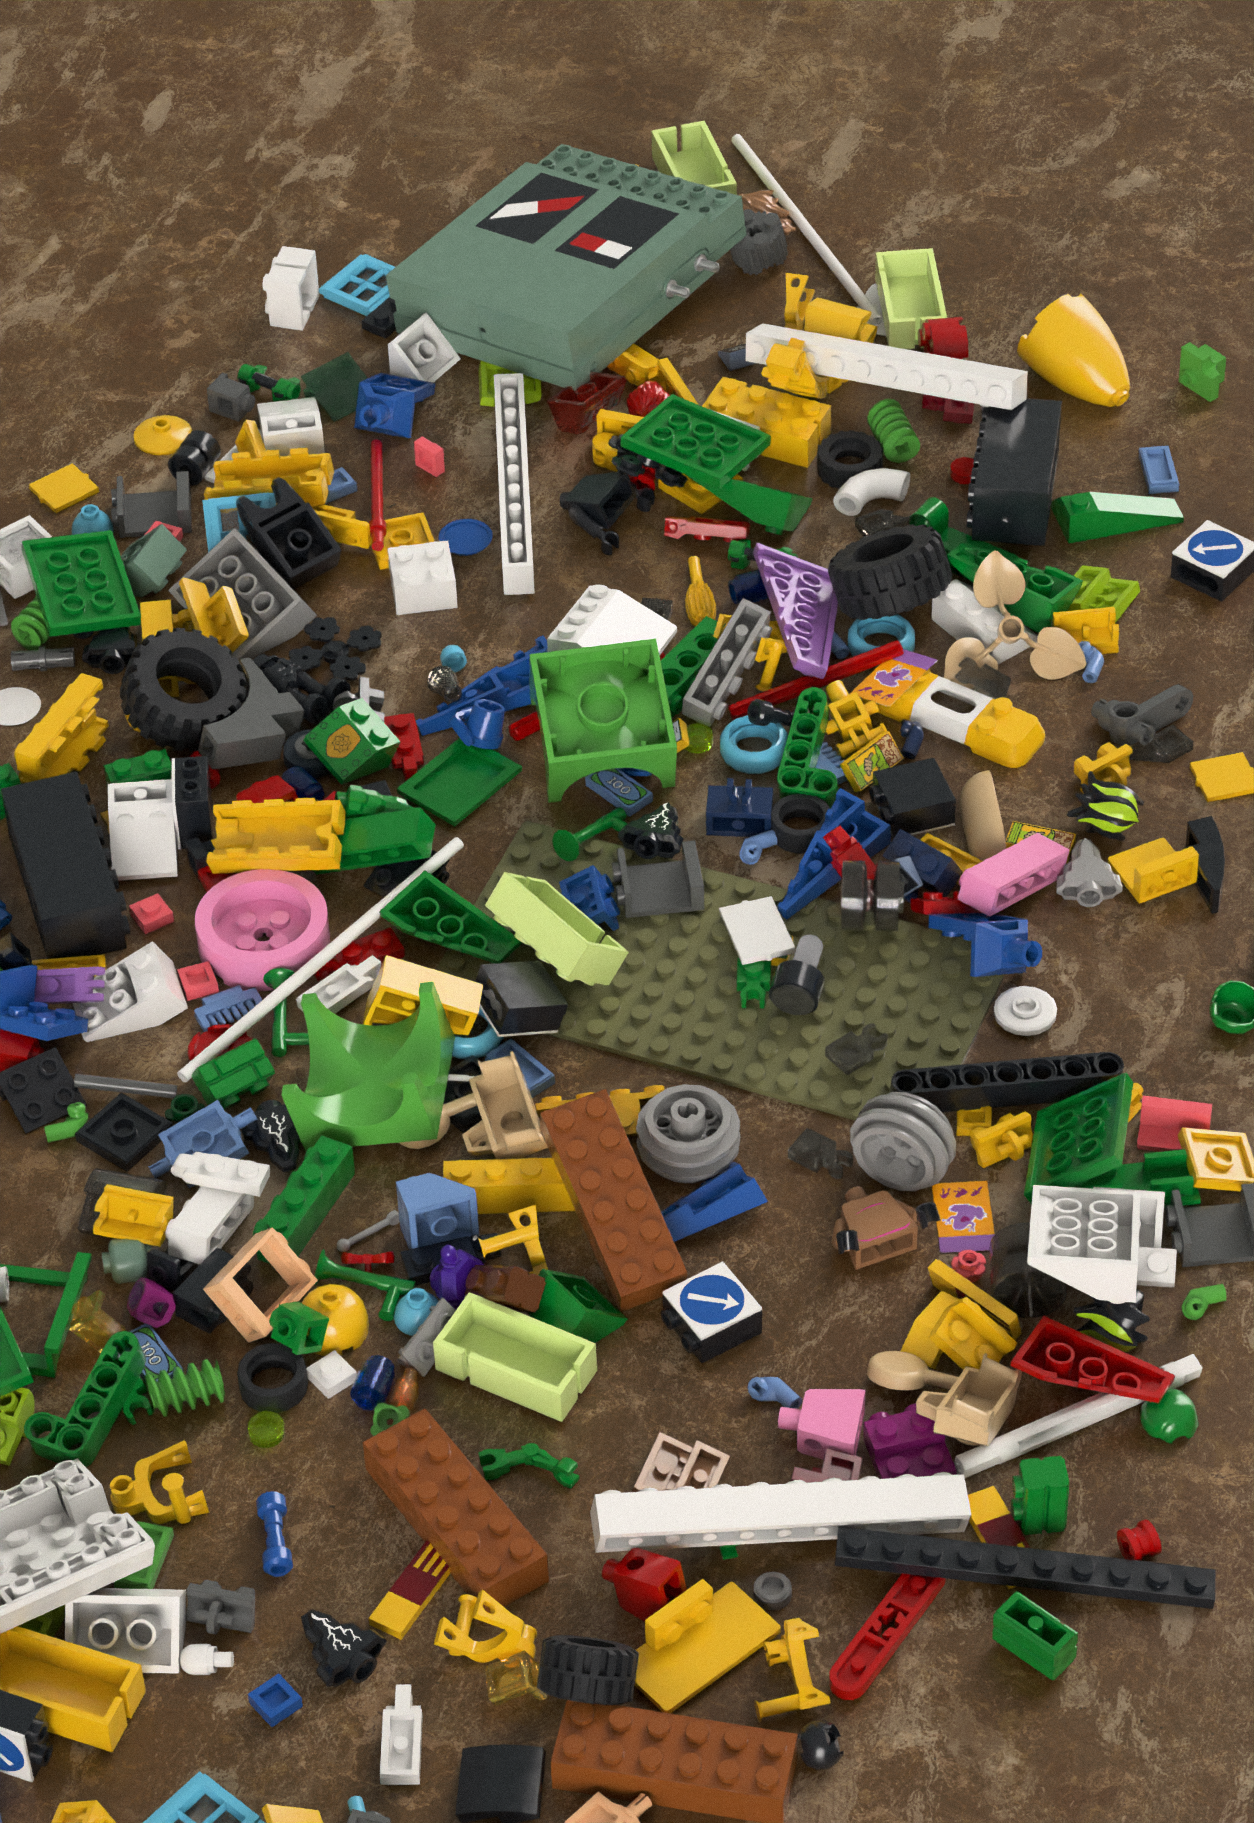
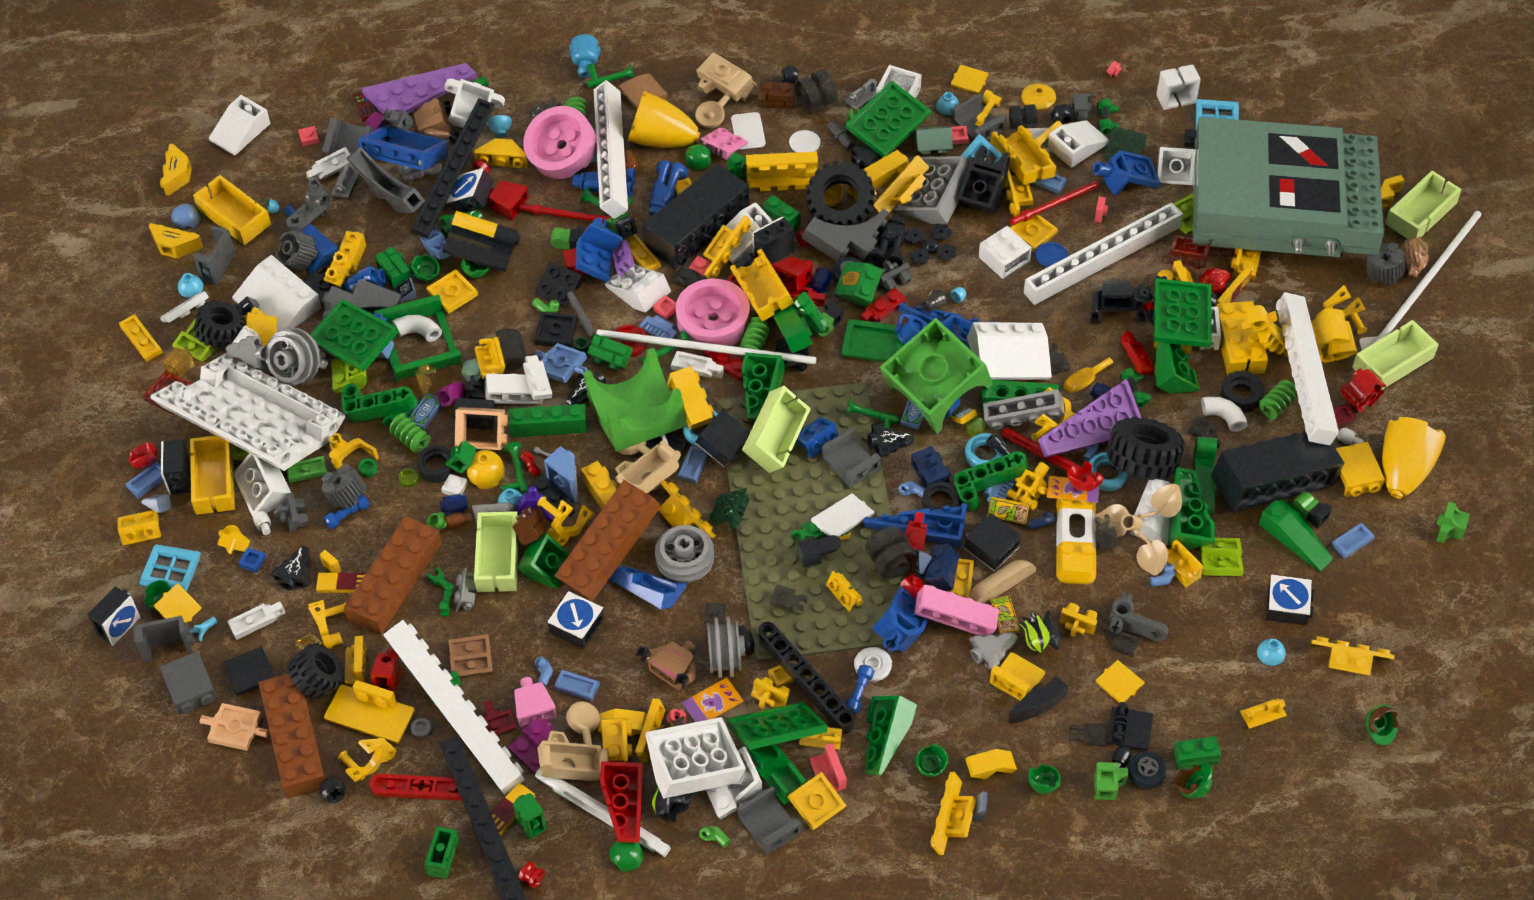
camera: 60 degrees right, 10 degrees up
(44, 1796) = (158, 502): none -> sand blue slope
(134, 479) = (990, 101): none -> yellow brick
(148, 859) = (723, 245): none -> yellow bracket
(163, 934) = (686, 277): none -> clear smoke plate
(190, 339) = (1114, 69): none -> coral plate
(203, 1475) = (367, 468): none -> green tile
(213, 1709) = (233, 539): none -> yellow piece
(226, 419) = (1061, 113): none -> black piece
(234, 1507) = (343, 486): none -> dark grey brick
(346, 896) = (755, 334): none -> bright green piece
(364, 1589) = (330, 562): none -> yellow tile
(549, 1434) = (462, 596): none -> light grey hinge
(592, 1615) = (355, 661): none -> yellow bracket
(640, 1052) = (729, 508): none -> clear green hinge
(826, 1363) = (576, 685): none -> medium blue tile
(887, 984) = (840, 588): none -> yellow hinge
(895, 652) = (1083, 478): none -> red hair
(1044, 1017) = (864, 674): none -> blue piece
(1078, 407) = (1360, 471): none -> yellow panel
(1088, 478) = (1312, 509): none -> leg
(1152, 1039) = (889, 723): none -> green wedge

